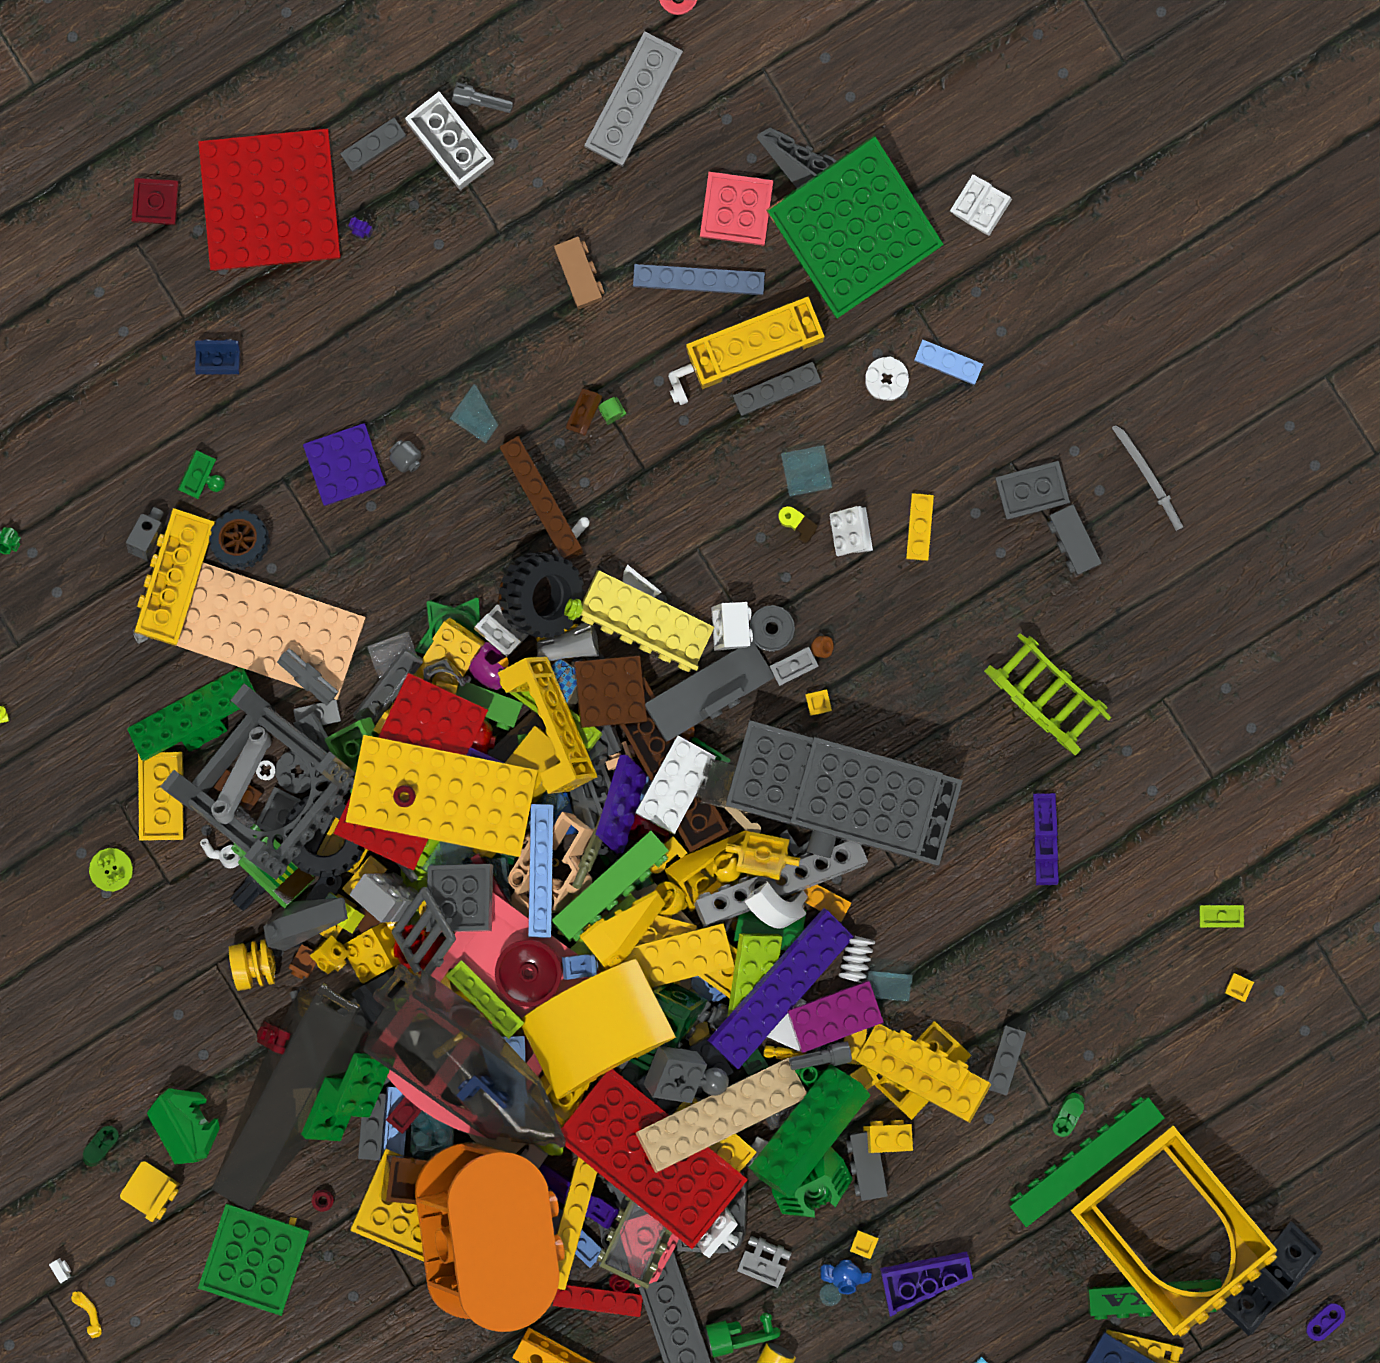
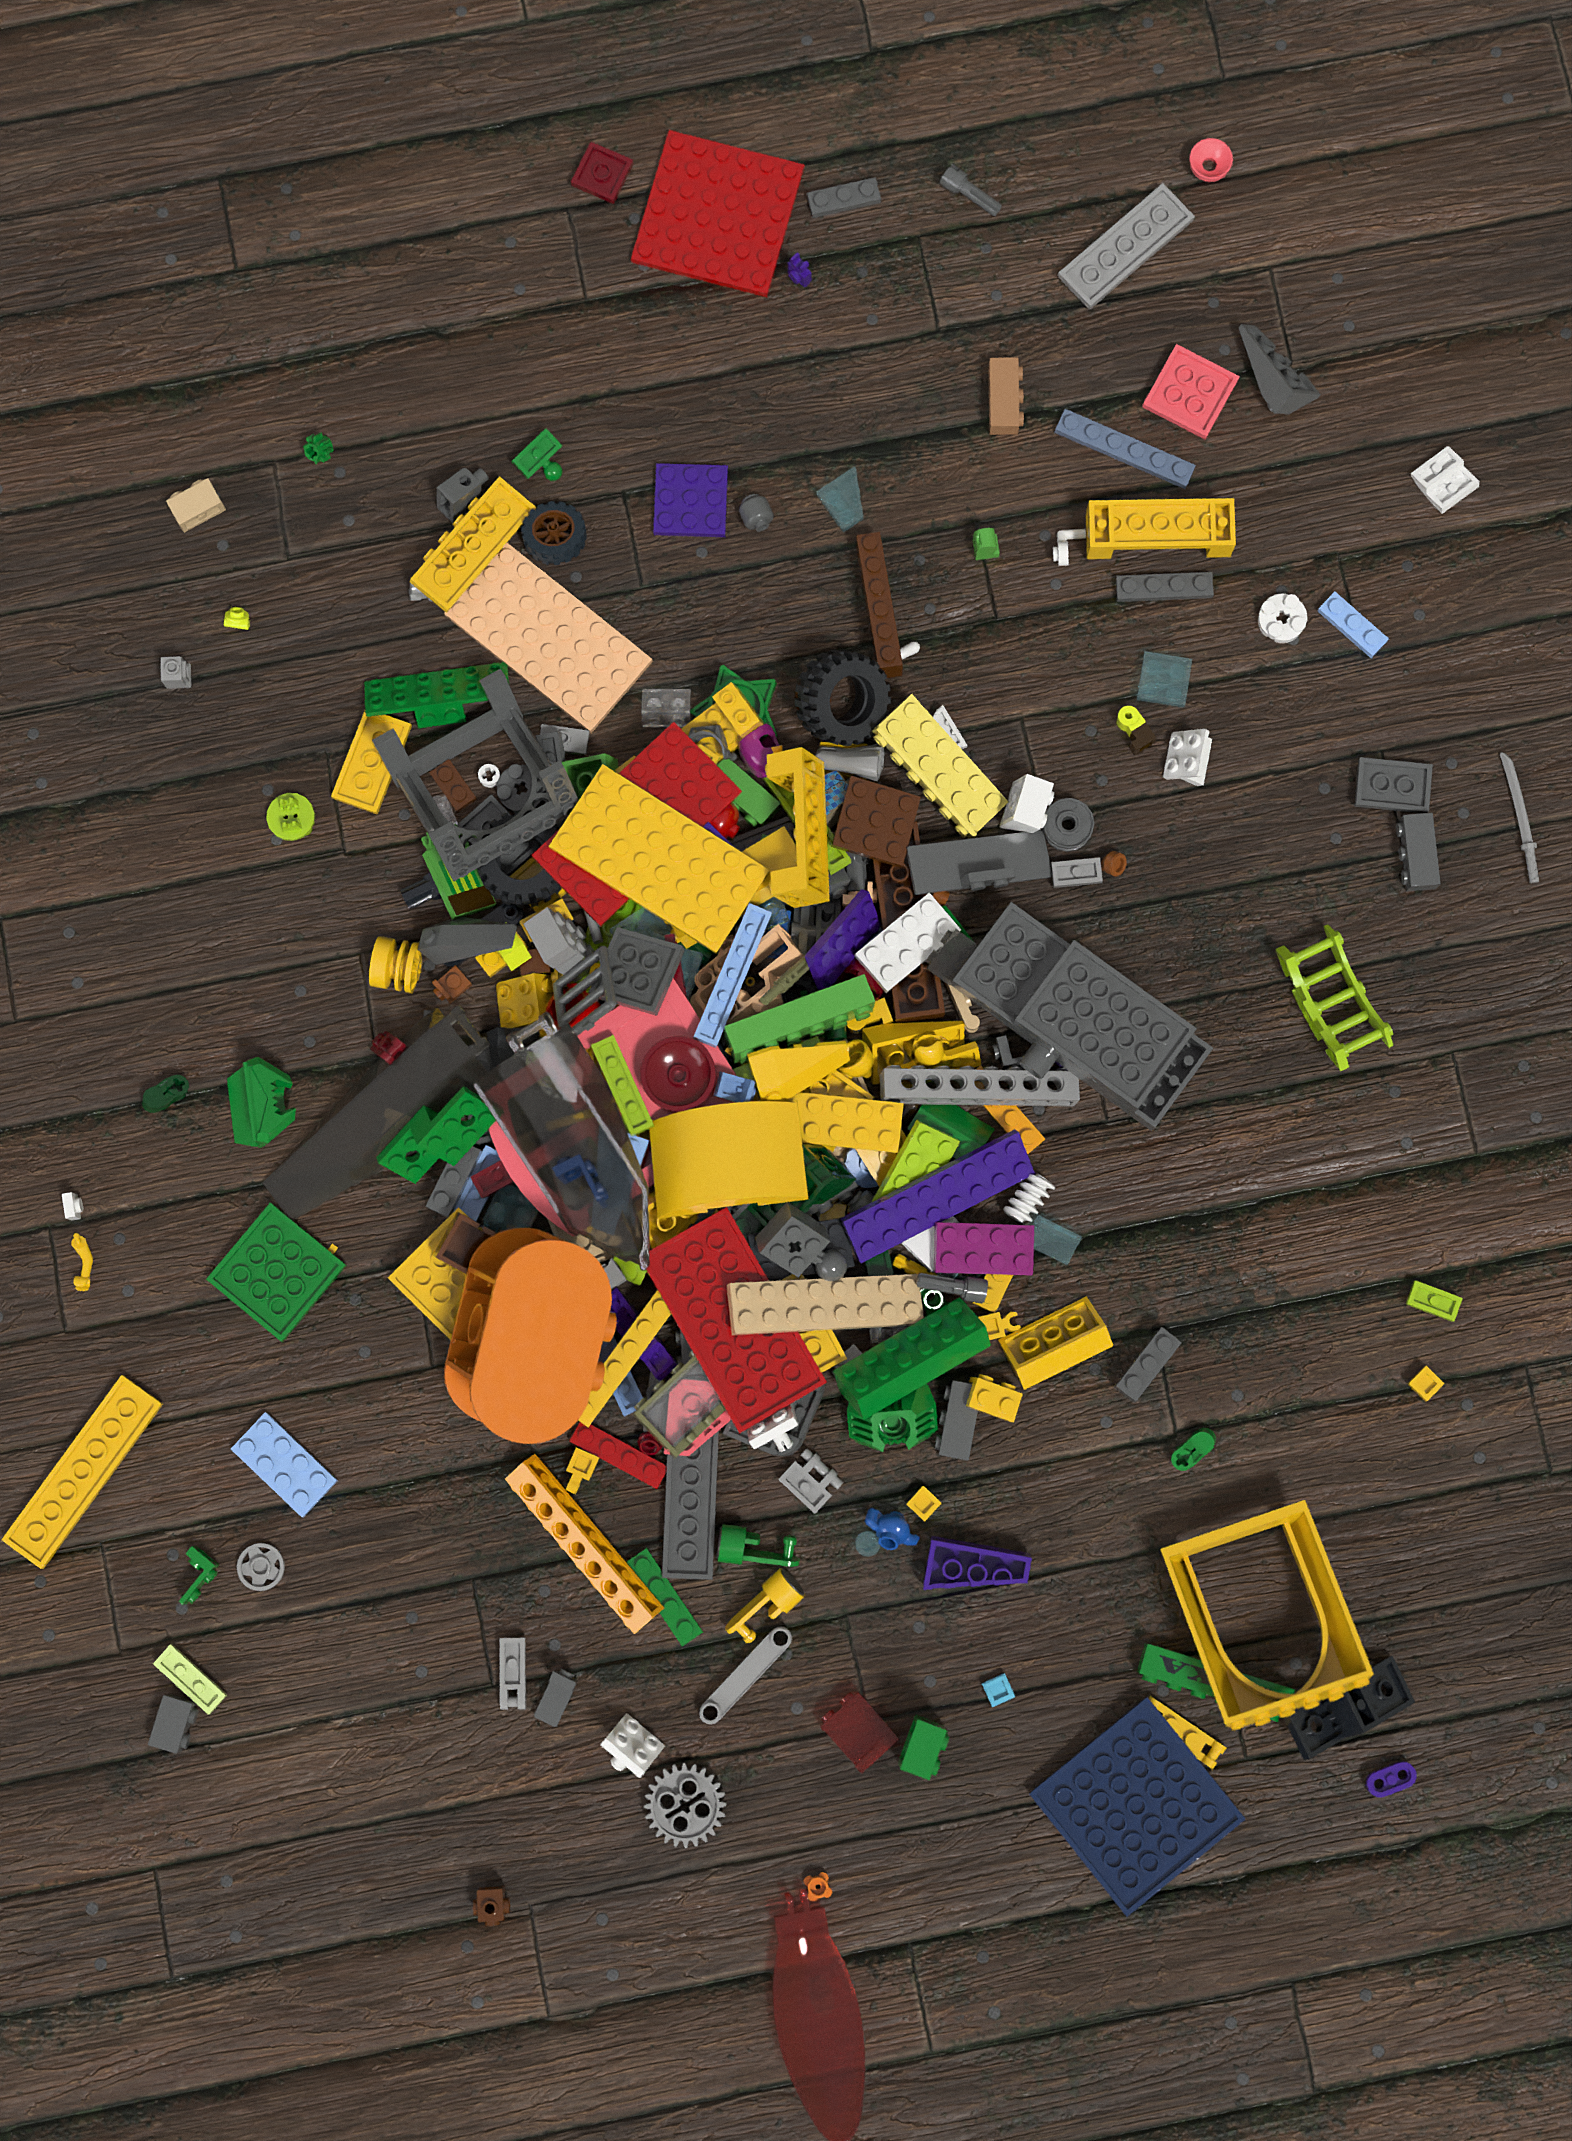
camera: 25 degrees right, 5 degrees down
(150, 1191) = (197, 1159): yellow bracket -> none
(217, 357) = (604, 345): dark blue bracket -> none
(224, 855) = (413, 846): white plate -> none
(241, 775) = (460, 767): light grey piece -> none
(307, 677) = (569, 694): dark grey piece -> none
(315, 1200) = (365, 1235): dark red plate -> none
(330, 955) = (480, 986): yellow brick -> none
(388, 686) = (641, 737): dark grey plate -> none
(404, 788) = (620, 833): dark red plate -> none
(449, 140) = (923, 218): white brick -> none
(499, 632) = (785, 722): white slope -> none
(571, 1322) = (581, 1466): none -> yellow plate
(573, 609) = (870, 722): lime plate -> none
(583, 412) = (956, 536): reddish brown plate -> none
(762, 855) = (971, 1049): yellow plate -> none
(773, 909) = (963, 1109): white arch -> none
(818, 702) = (1088, 919): yellow plate -> none
(854, 227) = (1307, 449): green plate -> none
(919, 527) = (1261, 780): yellow plate -> none
(924, 1071) = (1058, 1341): yellow plate -> none
(1045, 839) = (1275, 1150): dark purple slope -> none
(1086, 1161) = (1194, 1506): green brick -> none

